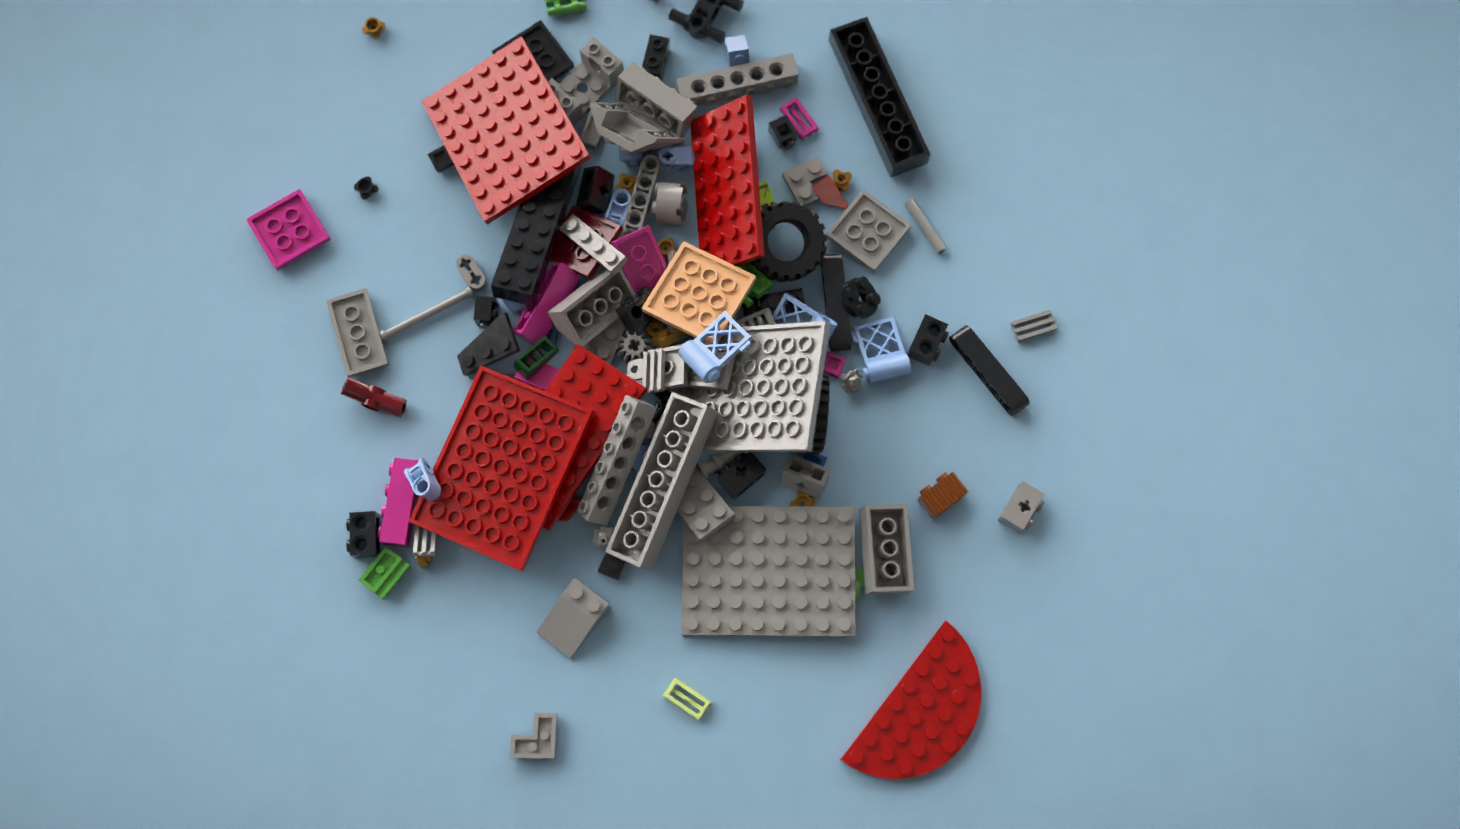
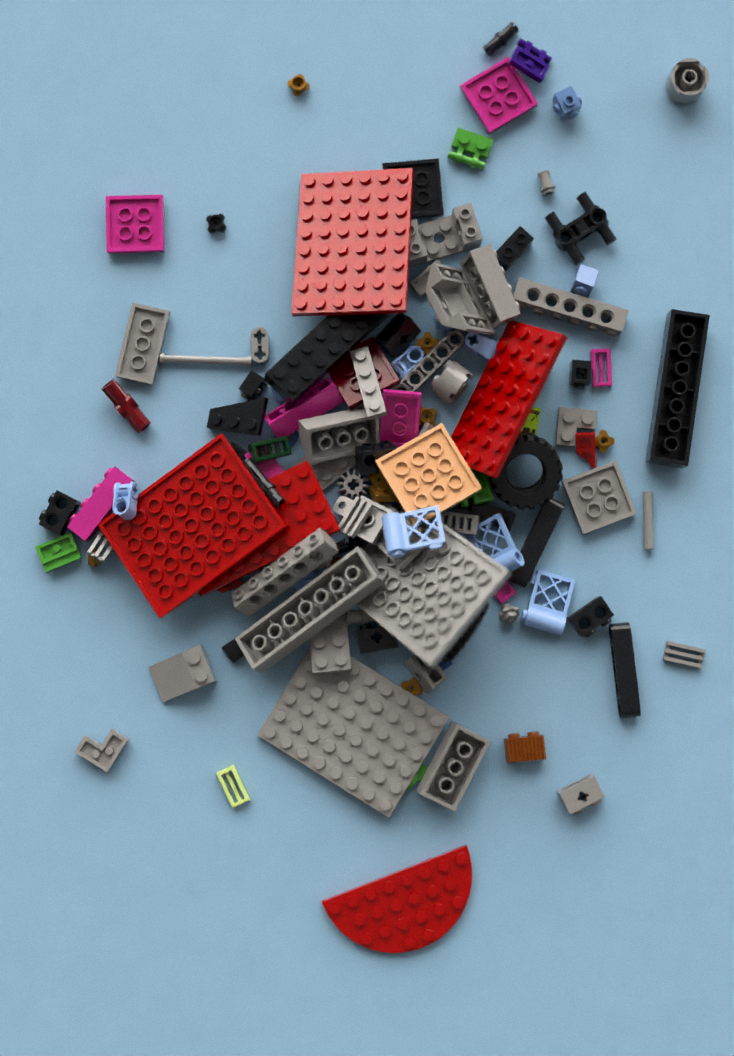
camera: 30 degrees right, 10 degrees up
(440, 159) = (288, 234): black plate -> none
(567, 392) = (264, 483): none -> black pin
(602, 536) = (241, 623): light grey plant -> none
(868, 294) = (563, 557): black plate -> none

